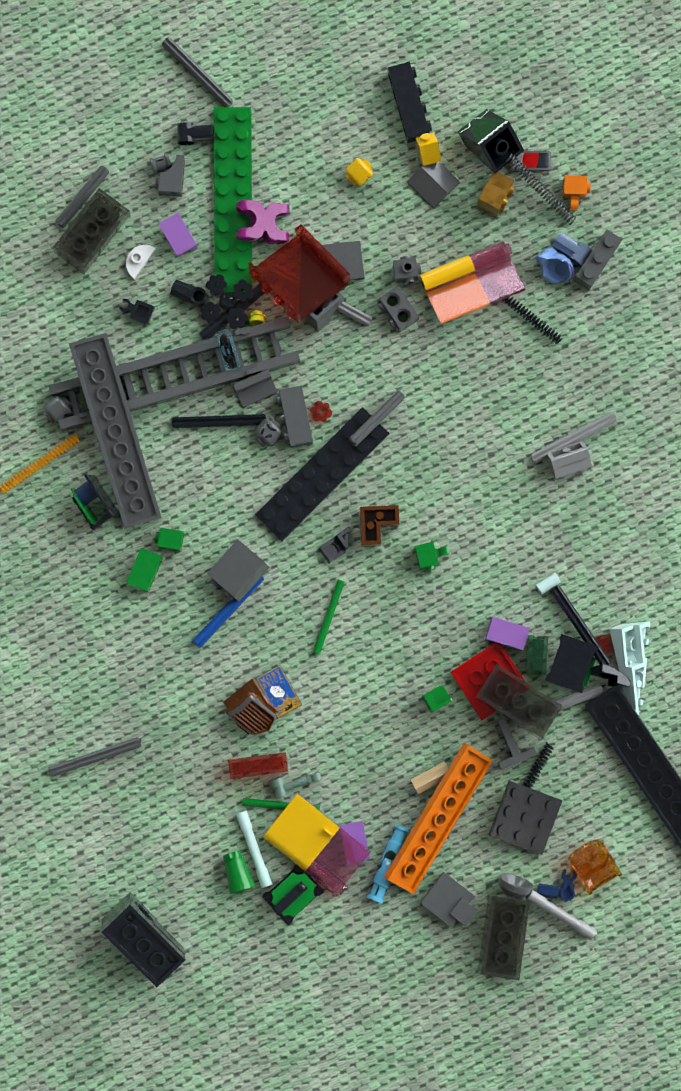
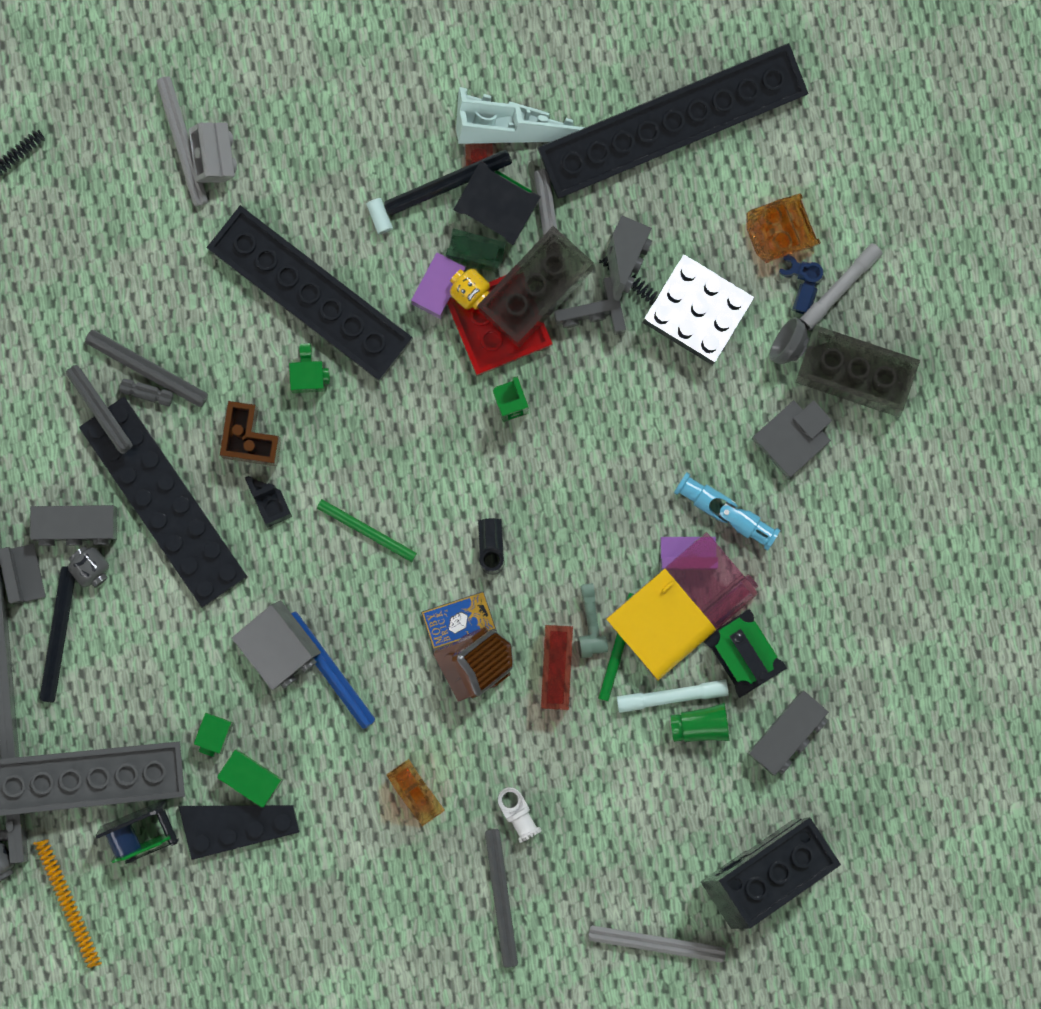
camera: 75 degrees left, 0 degrees up
(82, 870) = (657, 944): none -> light grey axle
(110, 565) = (230, 827): none -> black wing
(152, 758) = (519, 815): none -> white connector
(155, 684) = (415, 792): none -> clear orange slope
(242, 935) = (789, 733): none -> dark grey brick
(319, 406) = (69, 481): clear red plant -> none
(336, 704) = (490, 543): none -> black piece
(395, 447) = (146, 392): none -> dark grey axle
(411, 444) = (146, 368): none -> dark grey axle
(427, 820) = (676, 414): orange plate -> none
(429, 778) = (619, 429): tan axle -> none
(485, 546) = (309, 293): none -> black plate
(508, 655) = (469, 288): none -> yellow head
(556, 758) = (624, 253): none -> dark grey slope
(614, 676) = (525, 150): black slope -> none

